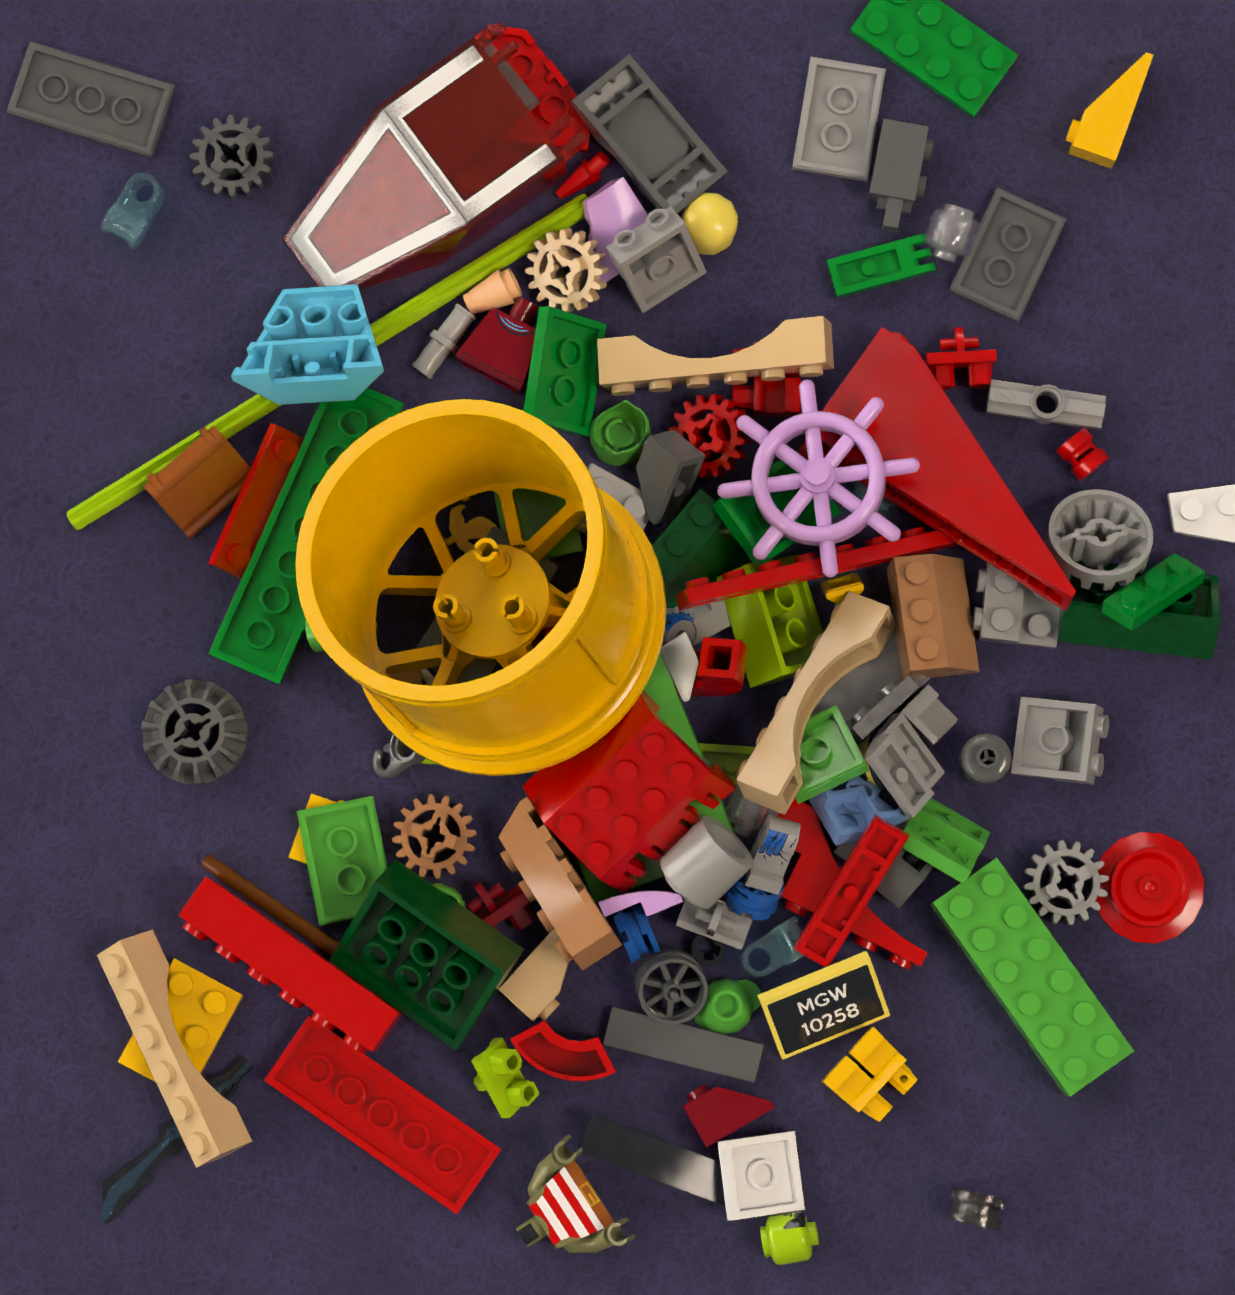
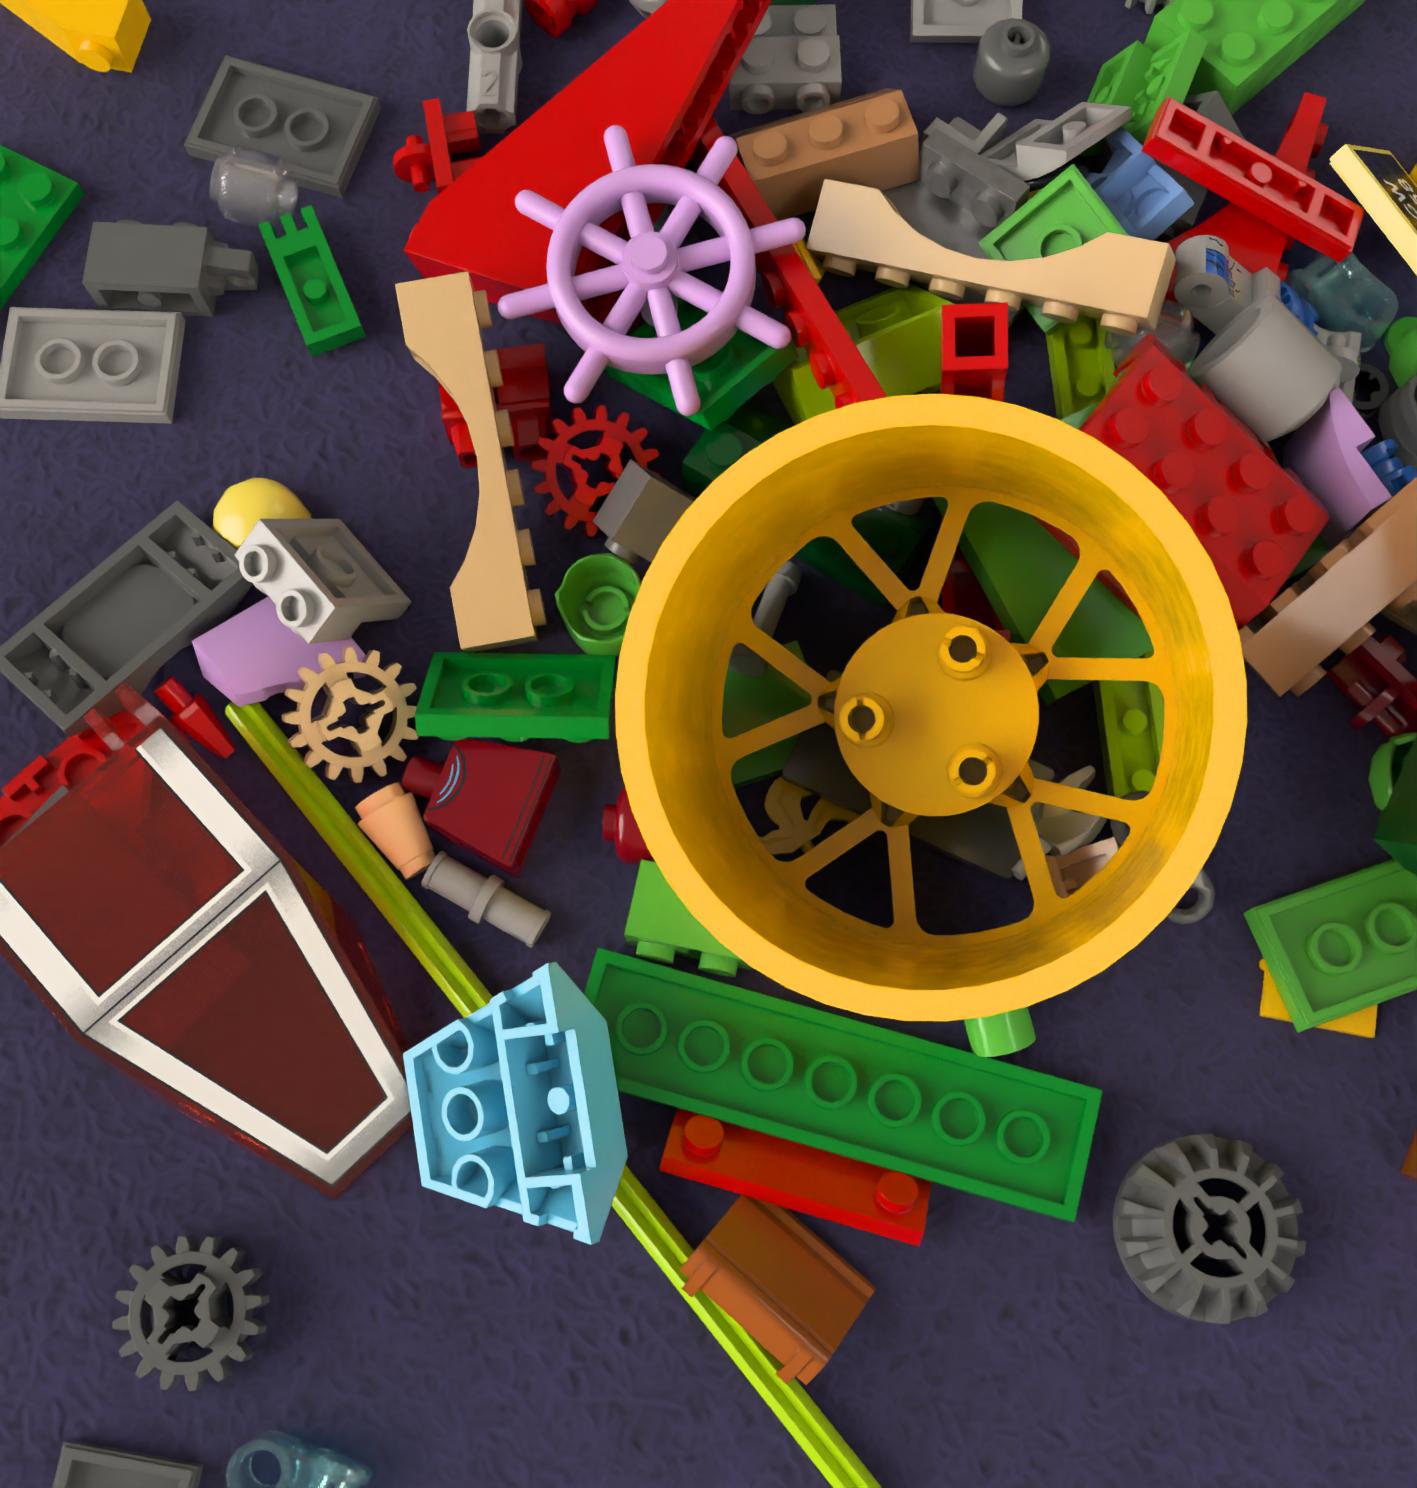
camera: 100 degrees left, 10 degrees down
(417, 831) = (1315, 785): medium nougat gear -> none

